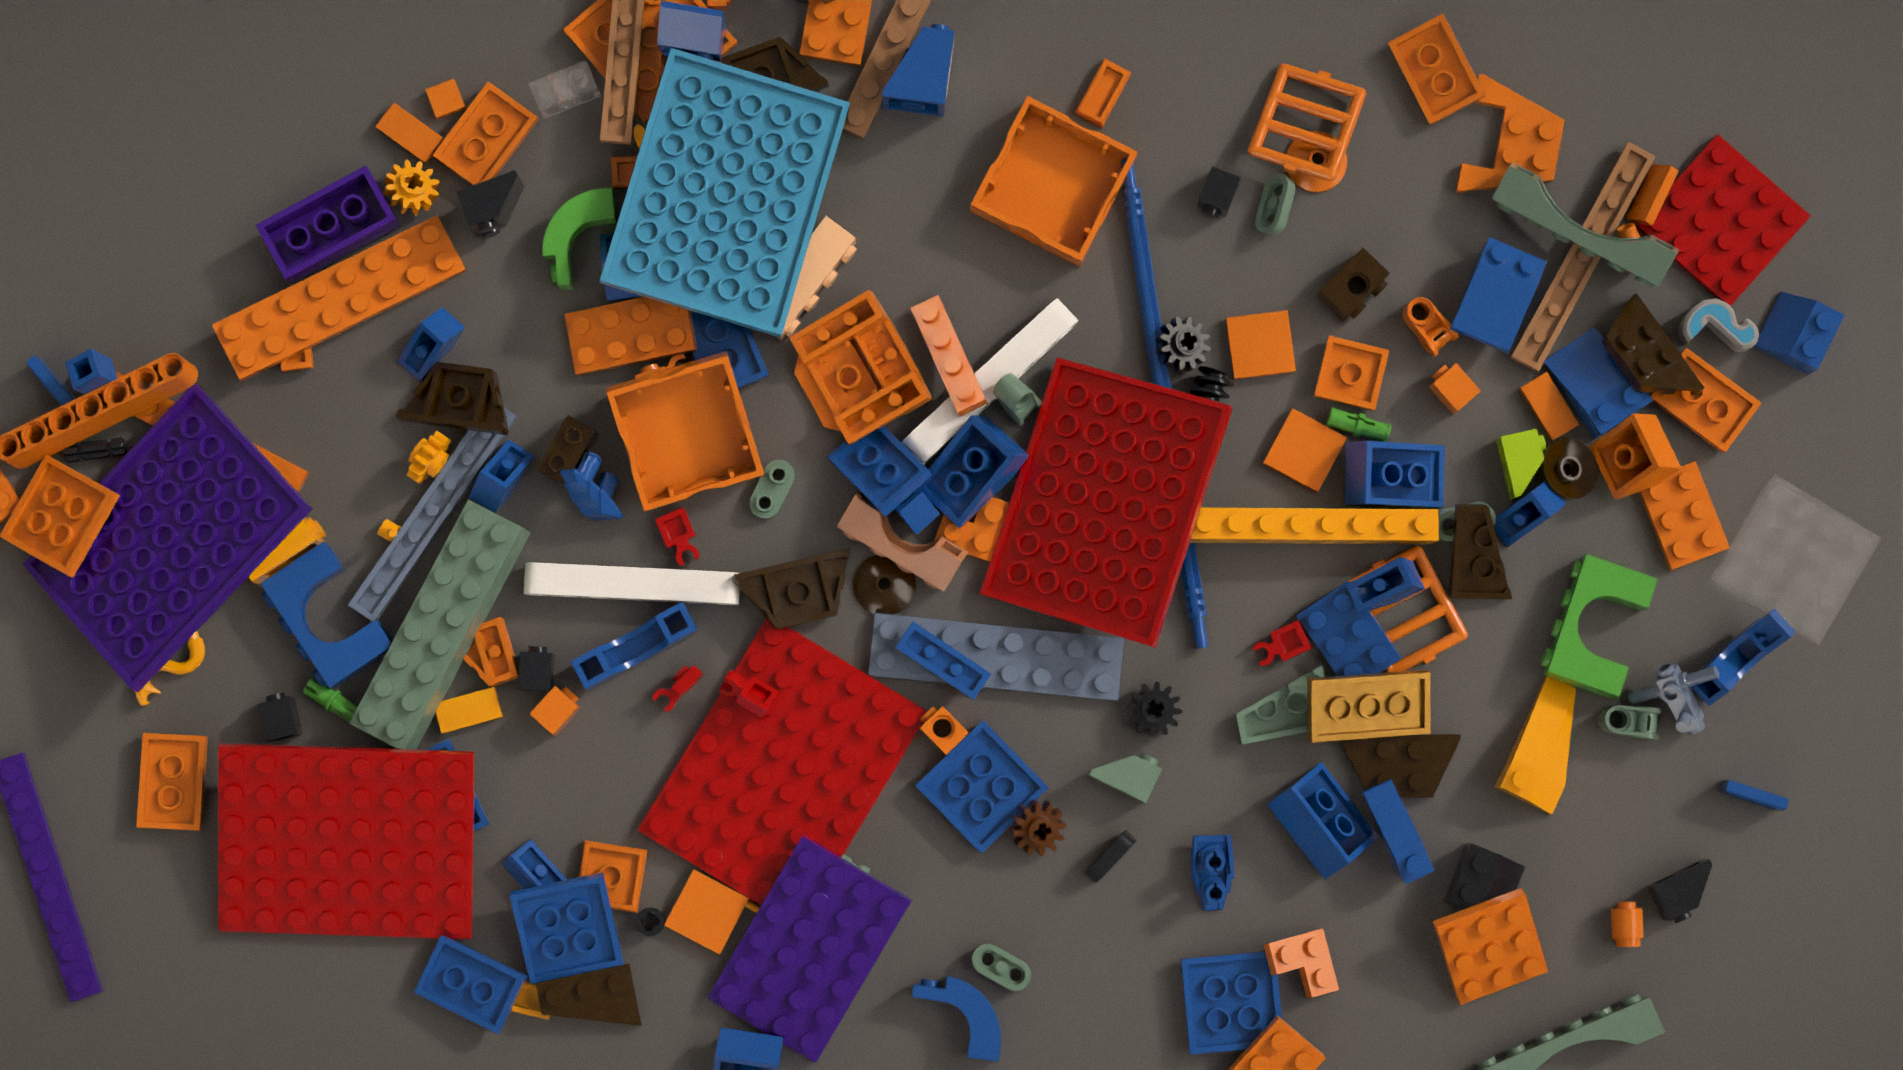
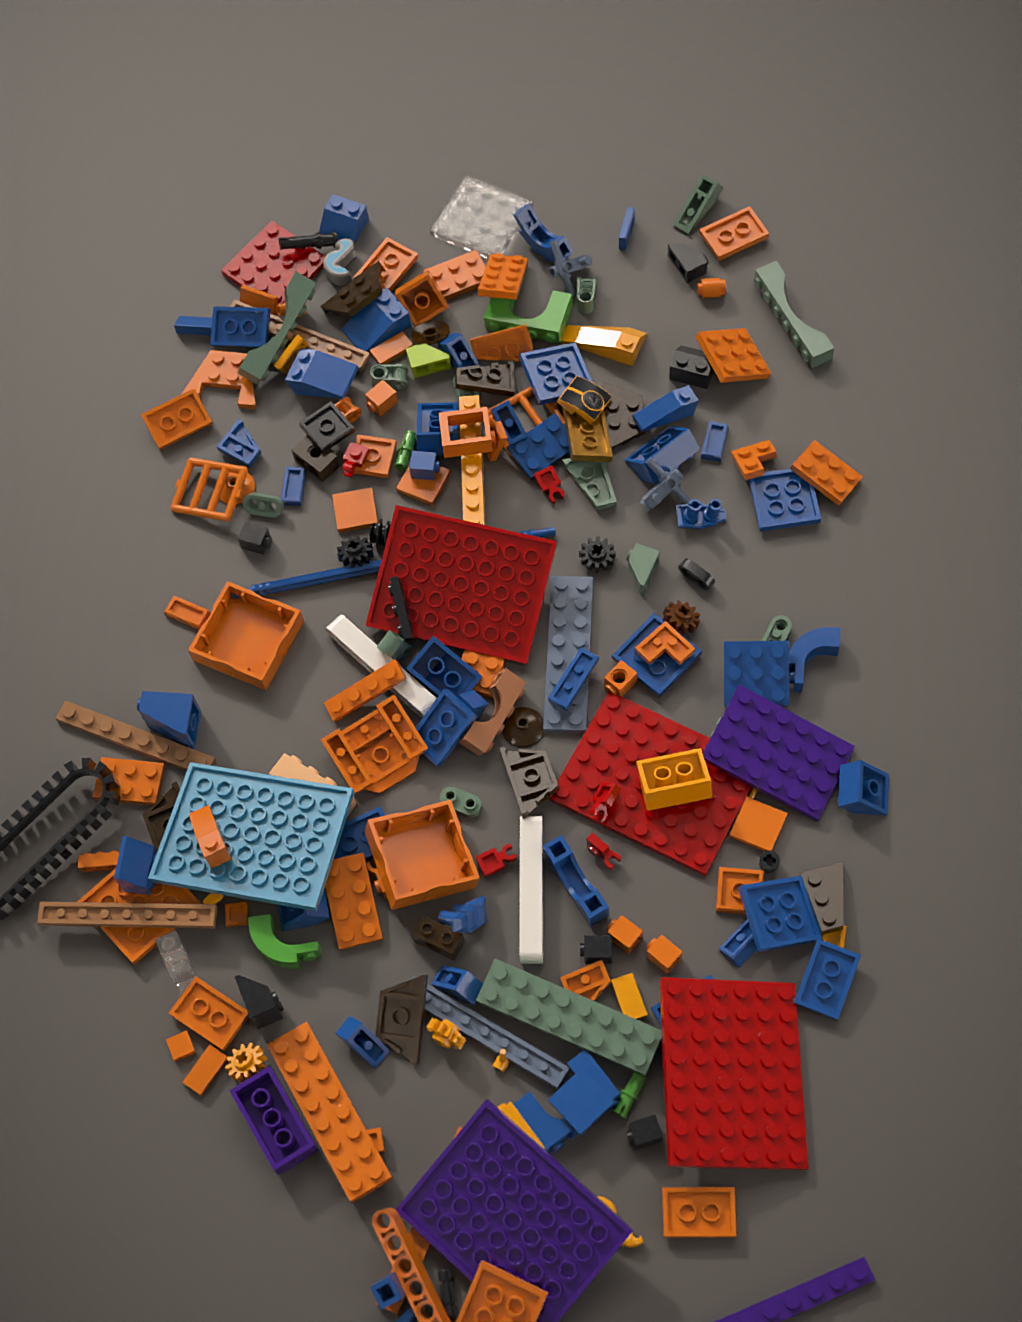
camera: 80 degrees left, 20 degrees down
(318, 634) = (581, 1101): none -> blue tile
(524, 761) = (663, 953): none -> orange brick
(722, 131) = (209, 837): none -> orange slope
(770, 795) = (674, 779): none -> light orange slope
(937, 932) = (758, 667): none -> blue plate
(996, 799) = (666, 640): none -> orange plate
(1069, 411) = (401, 609): none -> black plate
(1262, 824) = (667, 484): none -> sand blue piece
(1310, 251) = (293, 486): none -> blue tile
(1321, 452) = (424, 465): none -> brick
(1344, 904) = (714, 441): none -> blue tile
(1346, 345) = (354, 456): none -> red plate
(1355, 562) = (501, 437): none -> orange tile
(1358, 485) = (470, 445): none -> orange window
(1386, 168) = (239, 445): none -> blue wing
(1396, 302) = (327, 427): none -> black tile
(1420, 705) = (584, 398): none -> black slope
(1479, 666) = (553, 370): none -> plate
(1493, 405) = (390, 375): none -> sand green piece
(1539, 588) = (503, 344): none -> orange wing
(1540, 247) = (287, 358): none -> light orange tile
(1598, 166) = (240, 326): none -> blue plate
(1617, 95) = (193, 325): none -> blue slope
(1661, 588) = (503, 276): none -> orange plate
(1733, 970) = (734, 233): none -> orange plate
(1759, 289) = (317, 240): none -> black pin
(1793, 916) = (698, 204): none -> sand green slope

